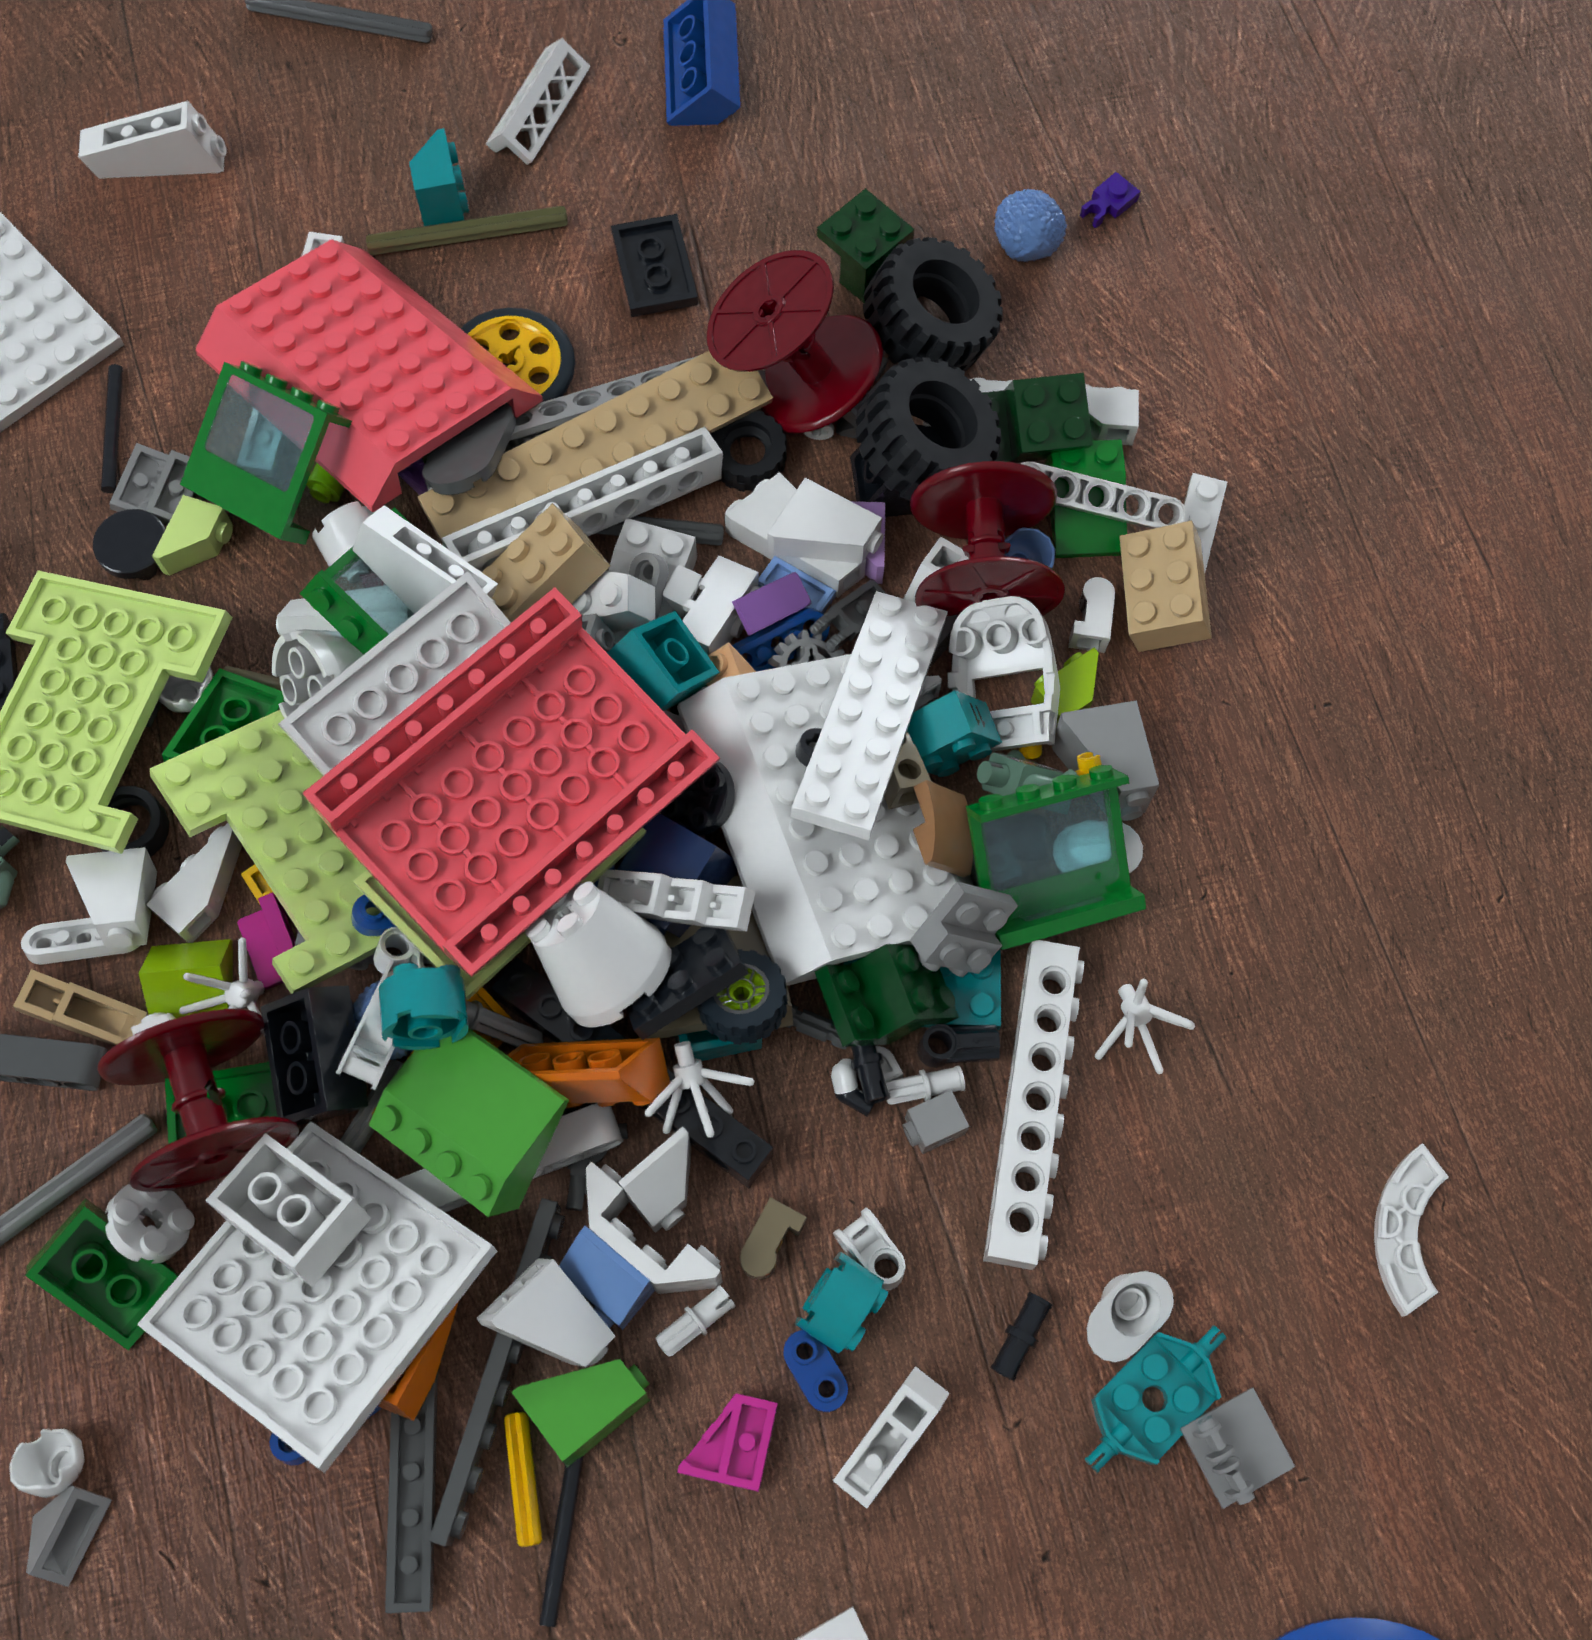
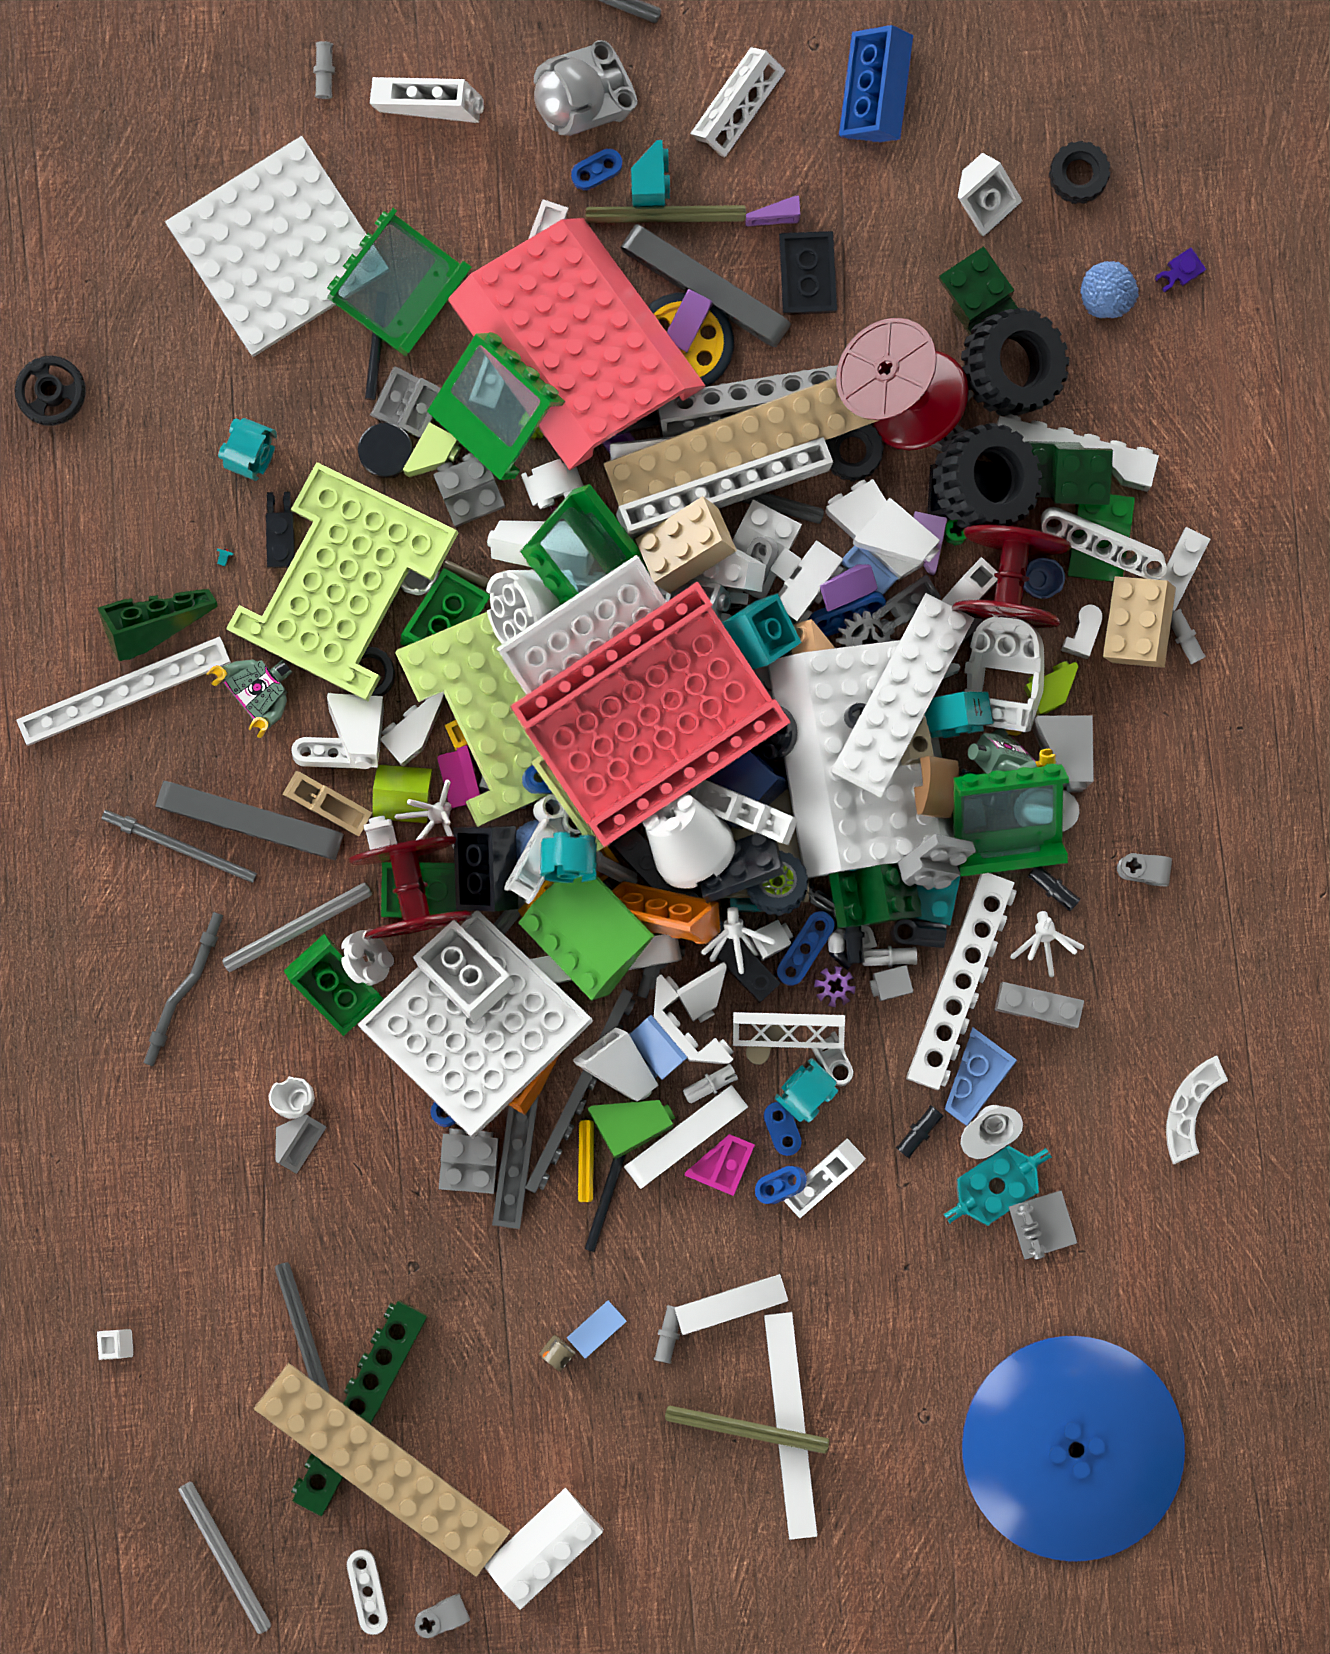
camera: 10 degrees right, 15 degrees up
(23, 139) = (324, 70): none -> light grey pin
(123, 347) = (396, 282): none -> clear light blue panel
(247, 573) = (468, 490): none -> light grey plate
(339, 1515) = (468, 1162): none -> light grey plate
(341, 105) = (582, 90): none -> light grey piece
(371, 194) = (595, 169): none -> blue plate
(411, 560) = (601, 534): white slope -> none
(470, 454) = (647, 439): dark grey tile -> none
(506, 286) = (691, 275): none -> dark grey beam
(512, 329) = (689, 319): none -> medium lavender slope
(601, 207) = (778, 213): none -> medium lavender slope
(669, 1412) = (686, 1136): none -> white beam
(750, 1100) = (775, 931): none -> white slope
(793, 1198) = (788, 1019): none -> white fence
(805, 1078) = (816, 941): none -> blue plate
(831, 1456) = (783, 1185): none -> blue plate
(845, 1131) = (843, 985): none -> medium lavender piece
(859, 146) = (987, 193): none -> white slope
(899, 522) = (953, 538): none -> green bush
(969, 94) = (1079, 151): none -> black tyre
(1089, 1237) = (979, 1075): none -> medium blue wing
(1133, 1112) = (1039, 1005): none -> light grey arch
(1134, 949) = (1054, 887): none -> black pin
(1228, 602) = (1186, 637): none -> light grey pin
(1259, 902) = (1150, 869): none -> light grey piece

